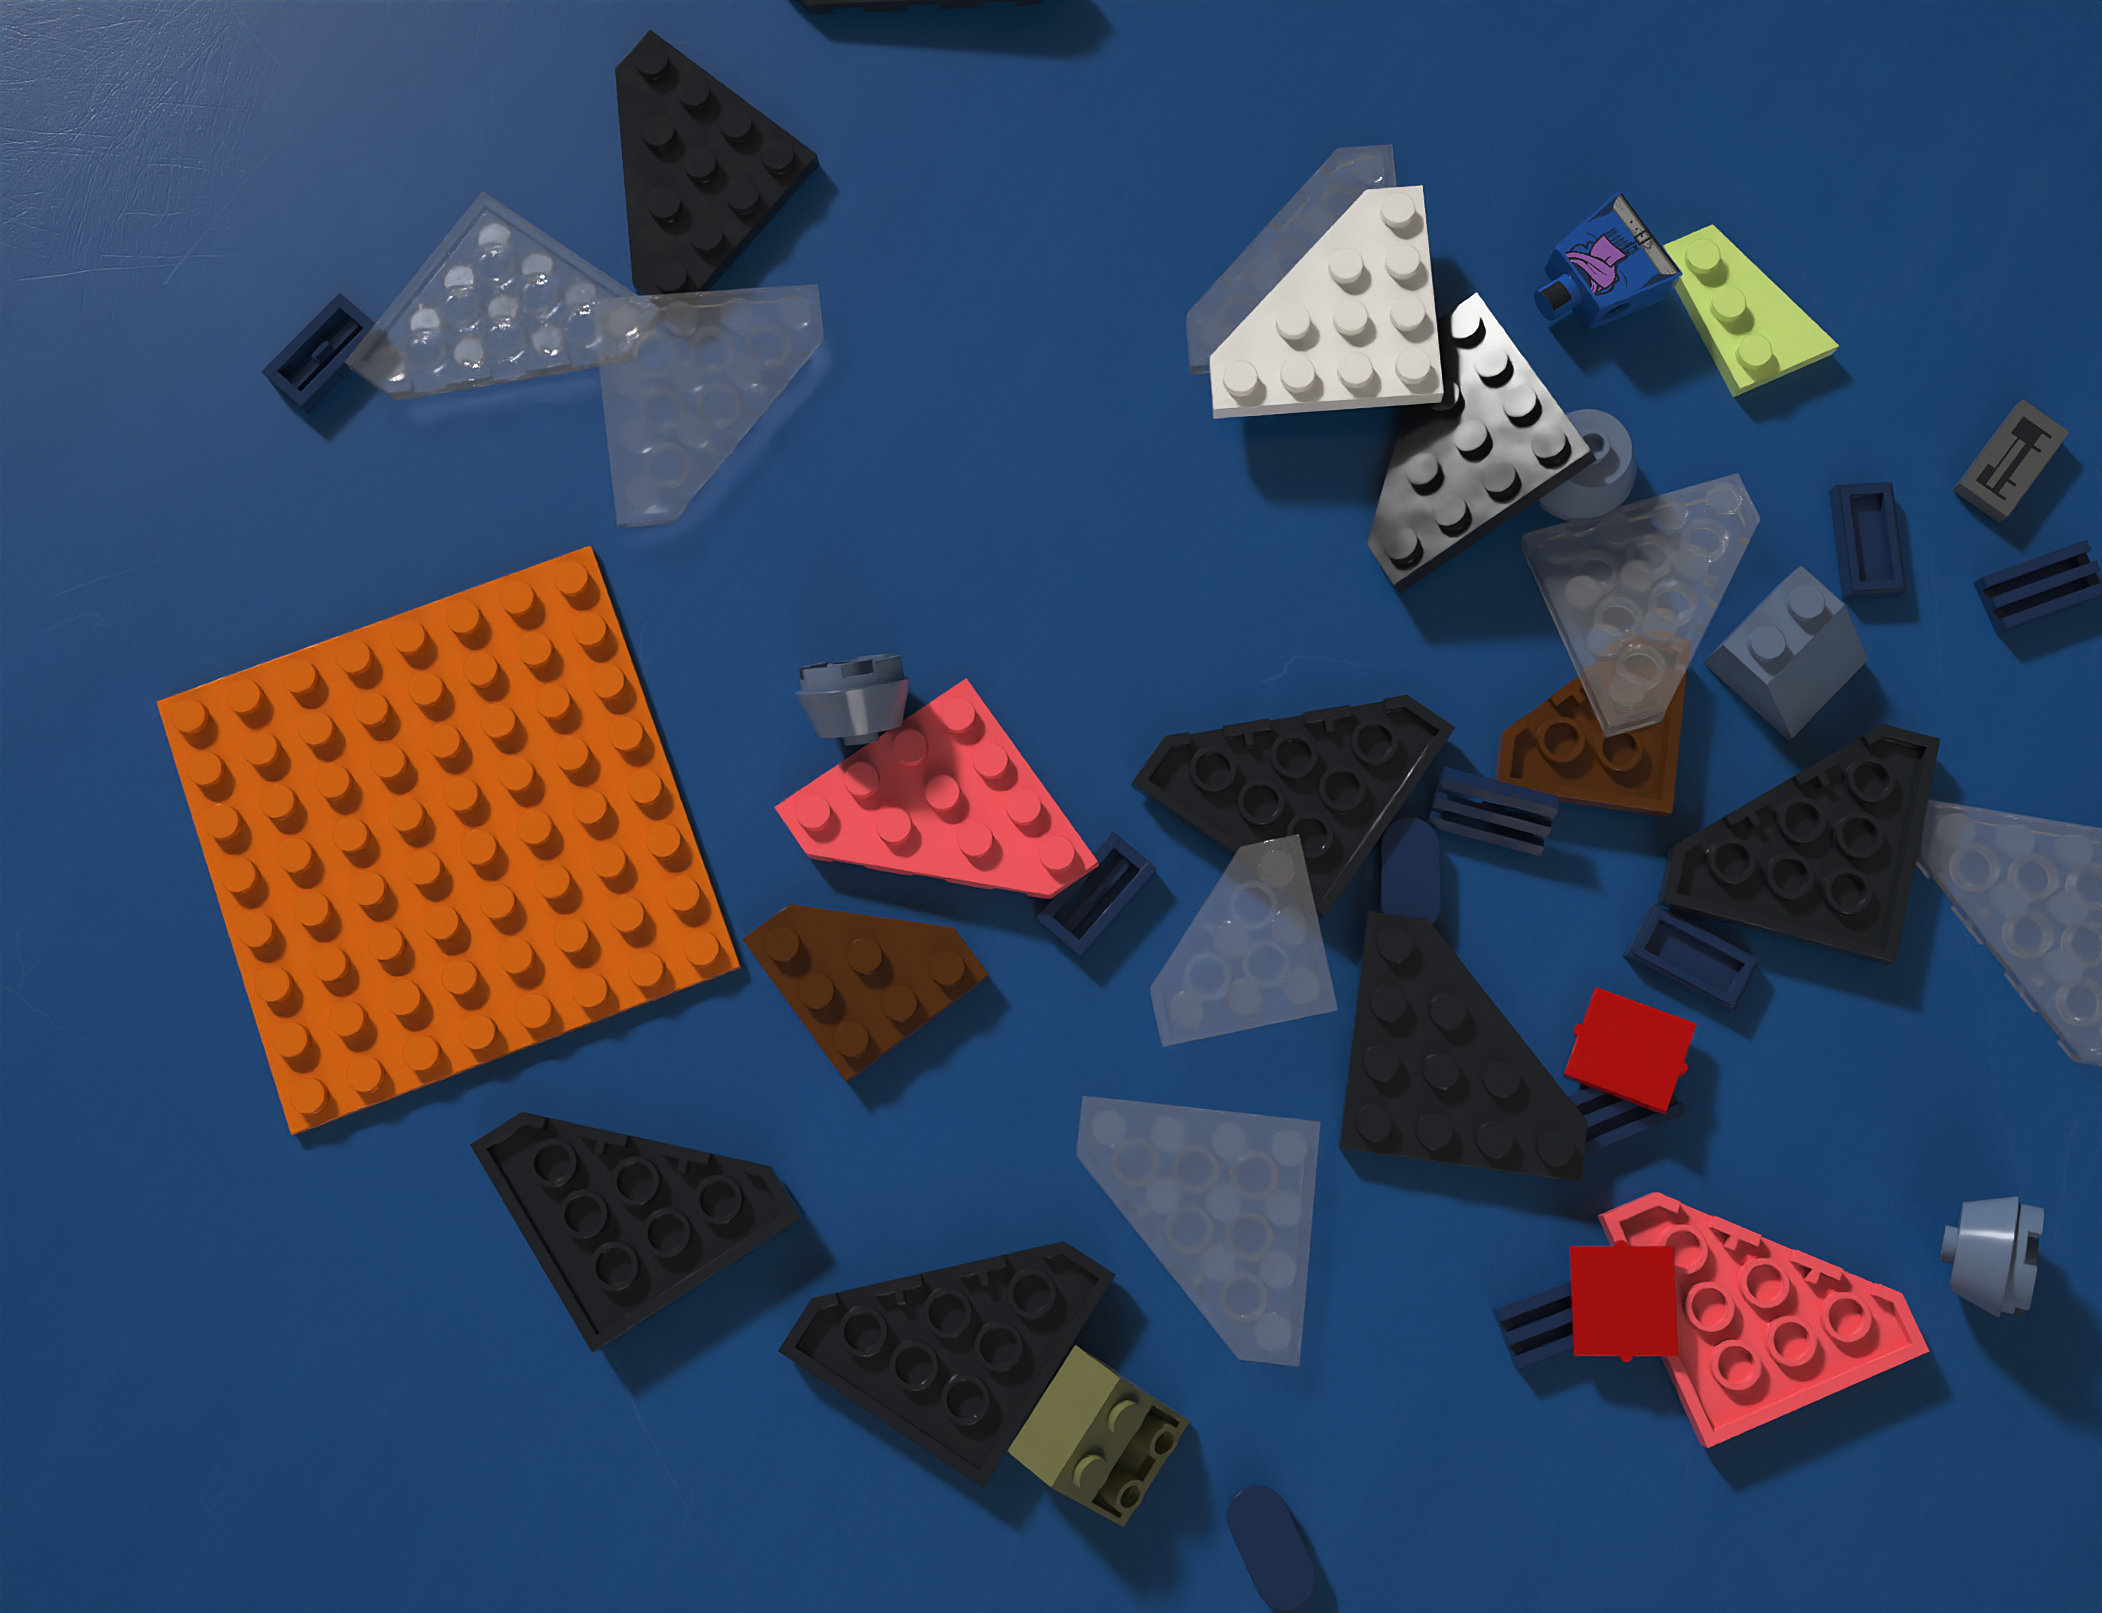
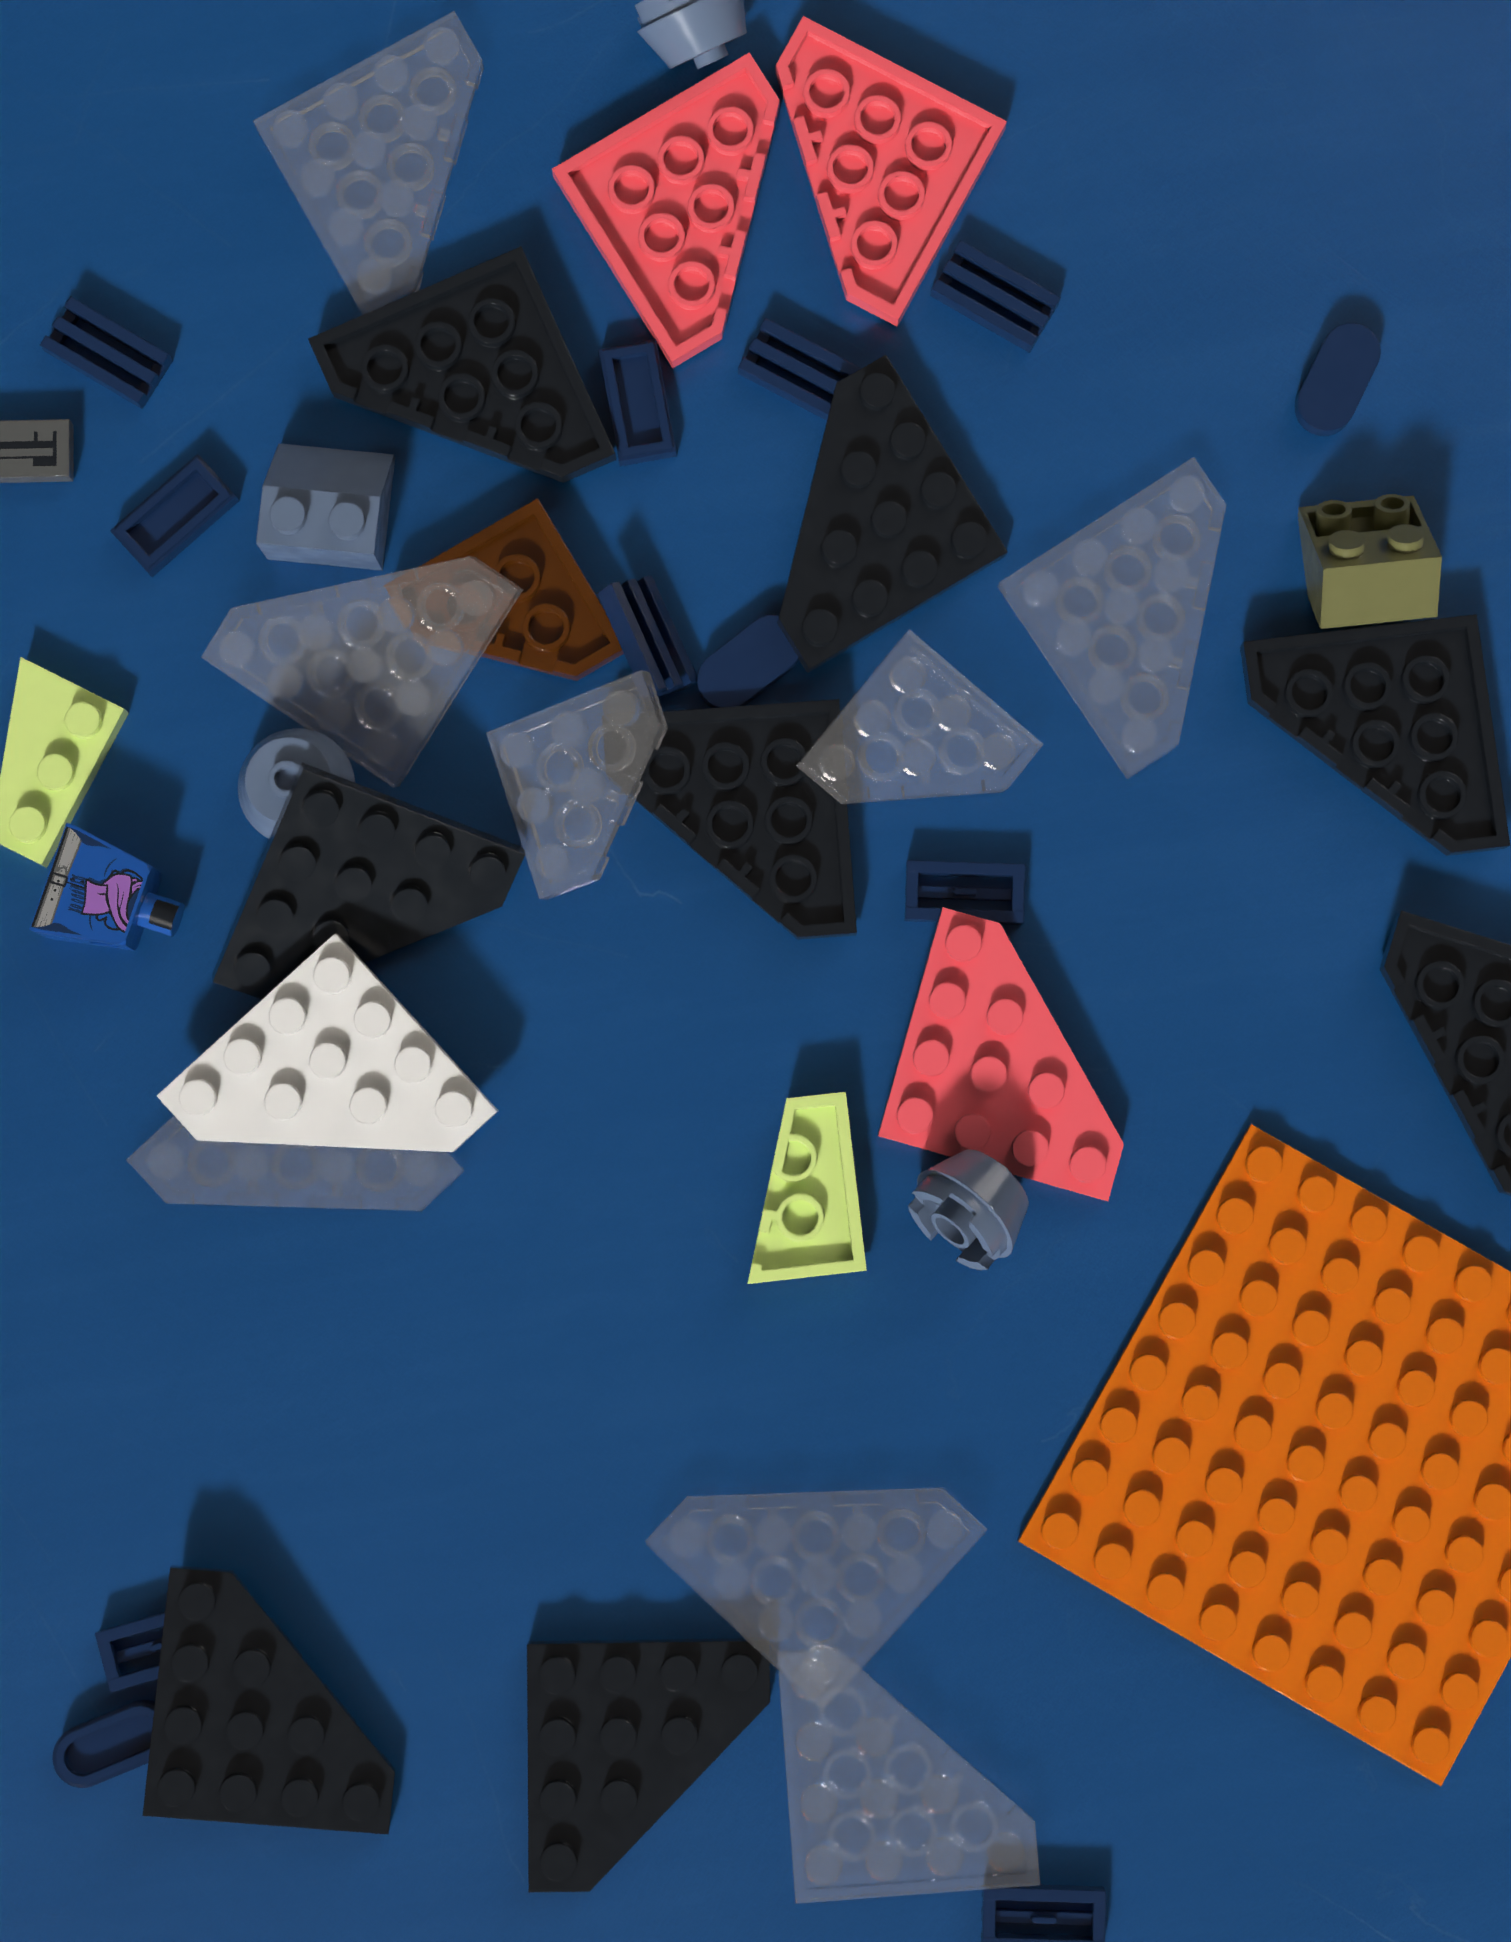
camera: 130 degrees left, 5 degrees up
(863, 977) = (1180, 1019): reddish brown plate -> none
(961, 595) = (812, 1196): none -> yellowish green wing
(1422, 669) = (577, 776): none -> clear plate
(1623, 1301) = (950, 258): red piece -> none
(1630, 1050) = (752, 393): red piece -> none
(1843, 1121) = (677, 202): none -> coral plate

